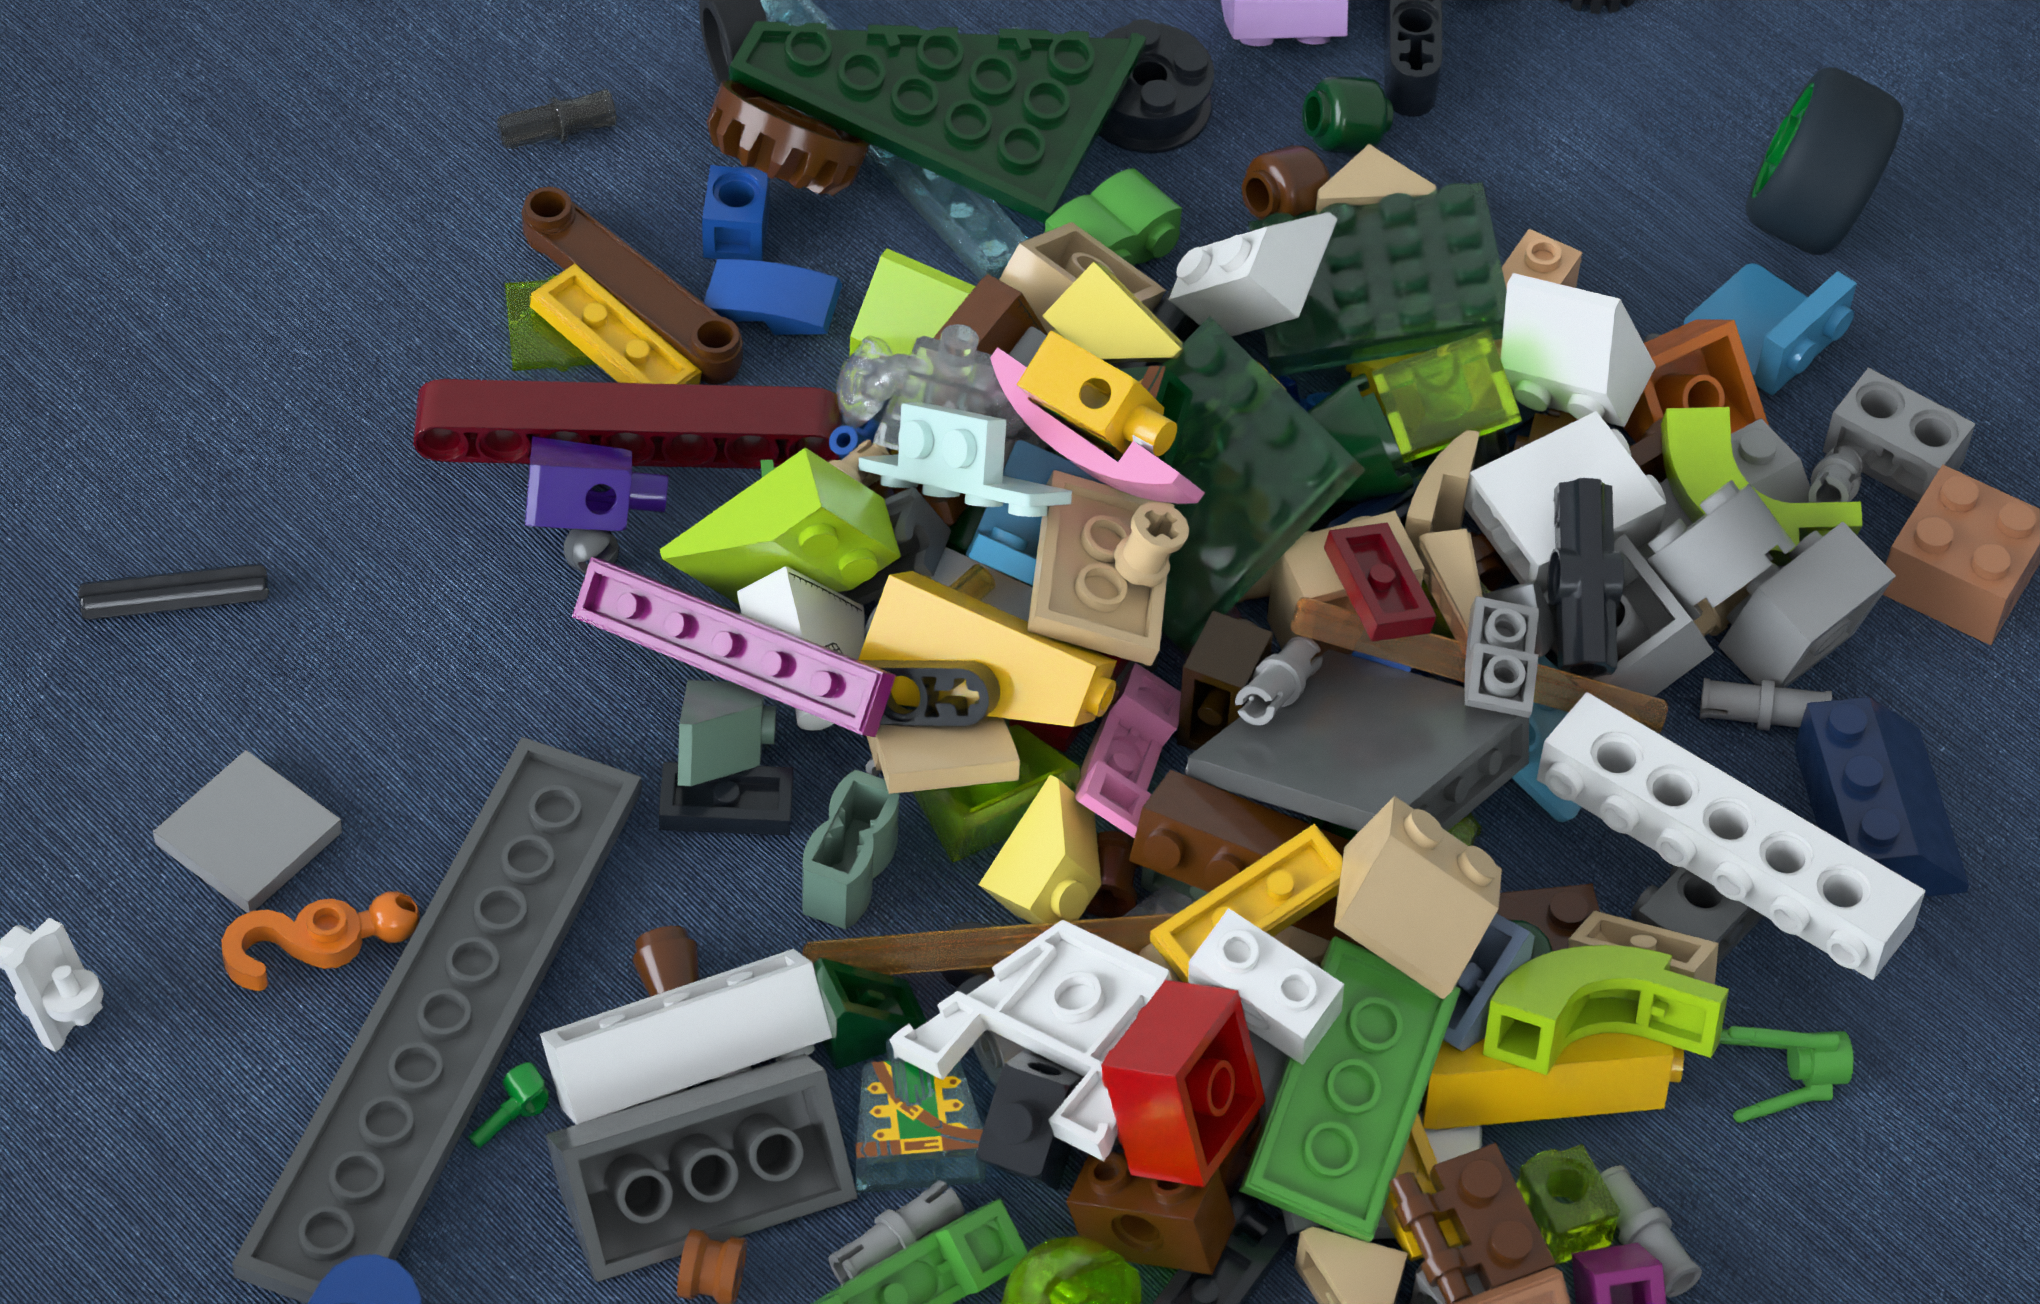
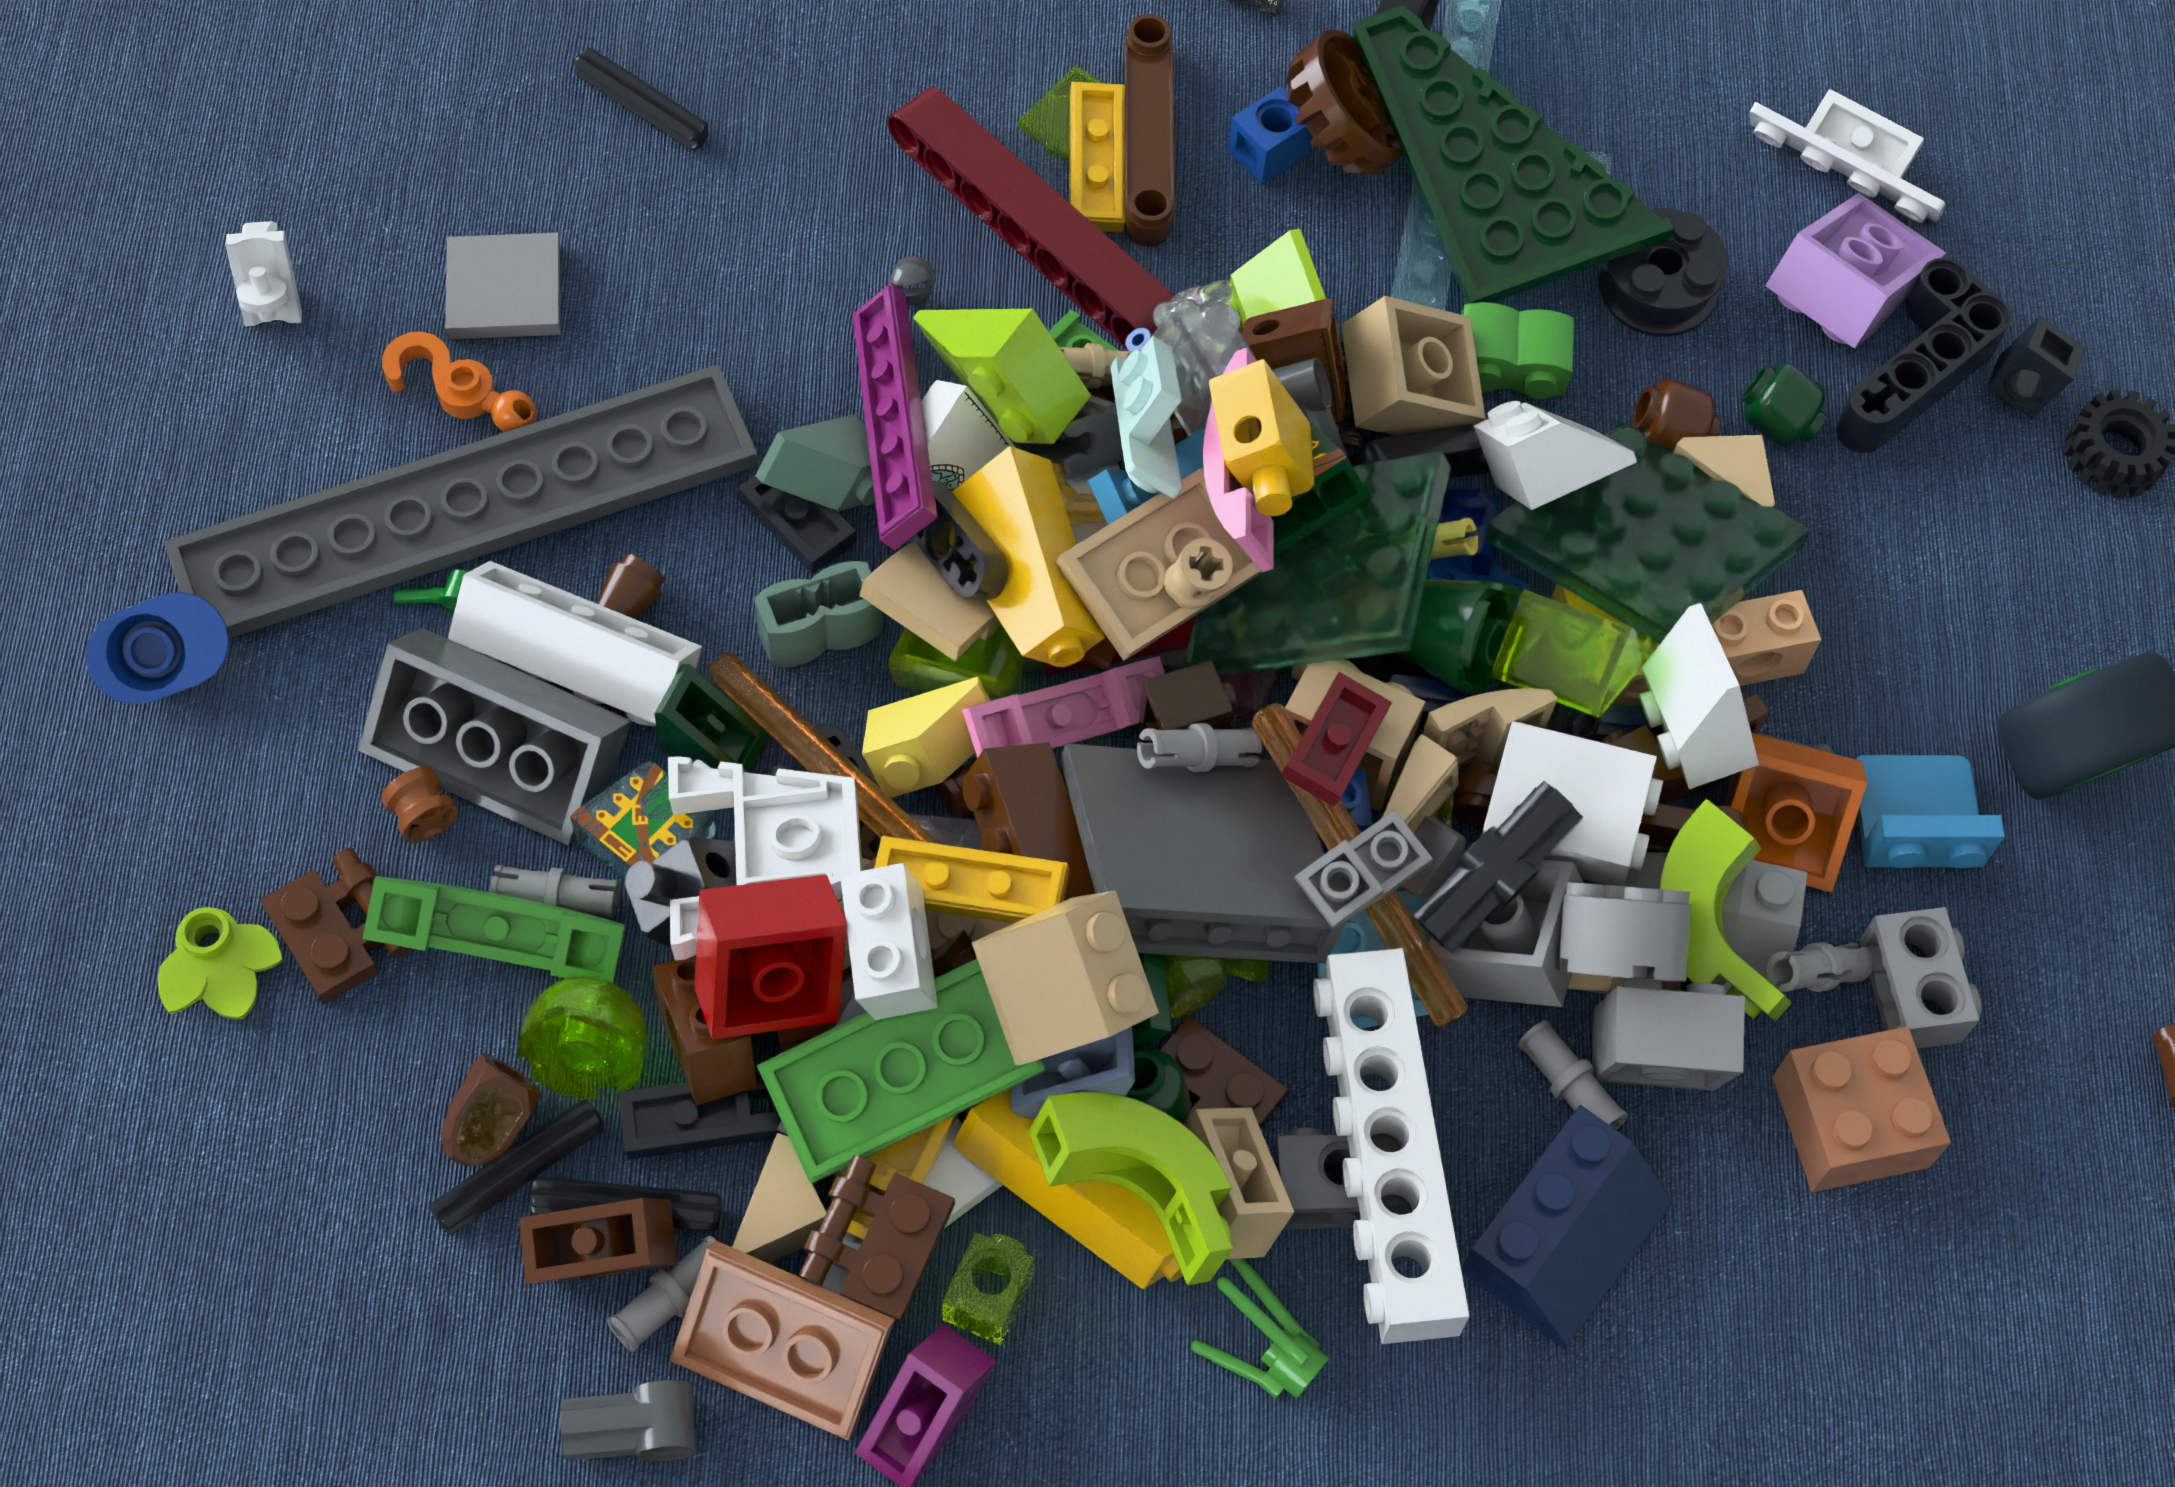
camera: 45 degrees right, 10 degrees up
(563, 481) = (941, 232): dark purple torso -> none
(781, 295) = (1229, 209): blue slope -> none
(1111, 321) = (1379, 399): light yellow slope -> none
(1650, 1228) = (1023, 1359): light grey pin -> none

